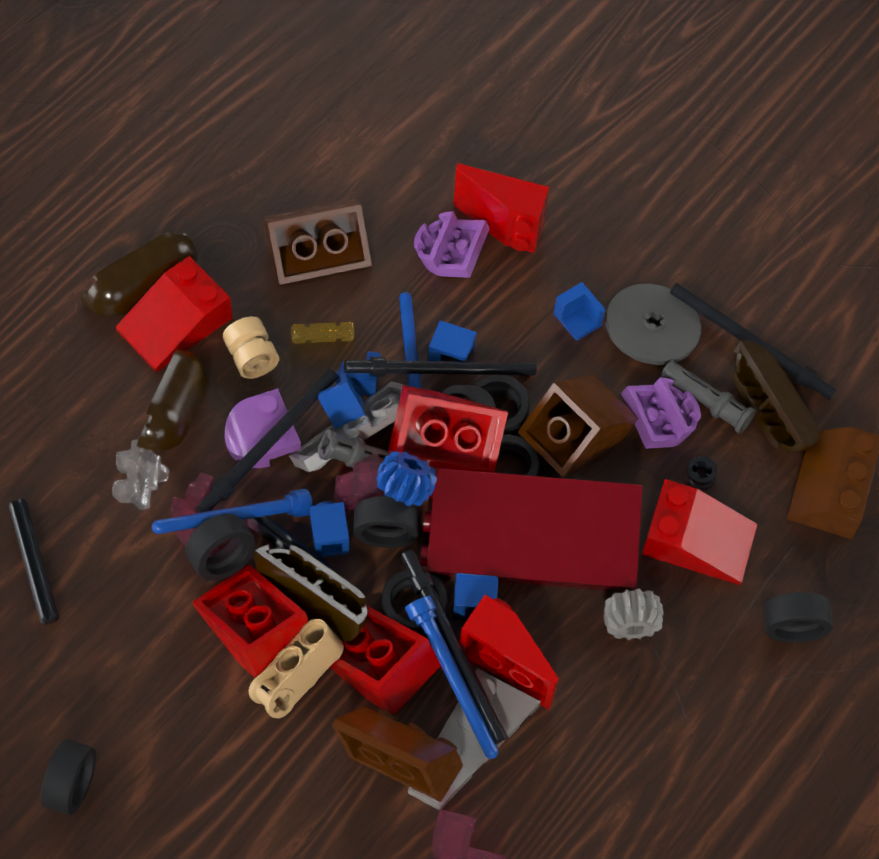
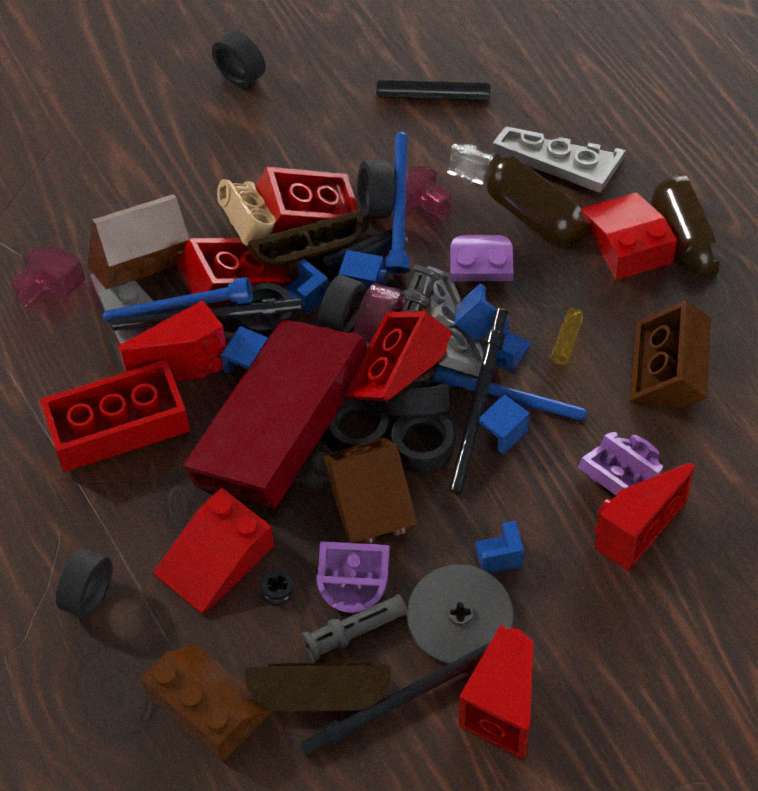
camera: 120 degrees right, 5 degrees down
(96, 397) = (558, 157): none -> light grey wing
(224, 487) = (427, 202): black bar -> none
(250, 347) = (578, 269): tan wheel -> none
(369, 574) = (309, 286): none -> blue panel
(406, 478) = (359, 293): blue gear -> none
(611, 681) = (115, 415): none -> red brick
(633, 614) = (161, 456): light grey gear -> none
(716, 256) = (499, 693): none -> red slope

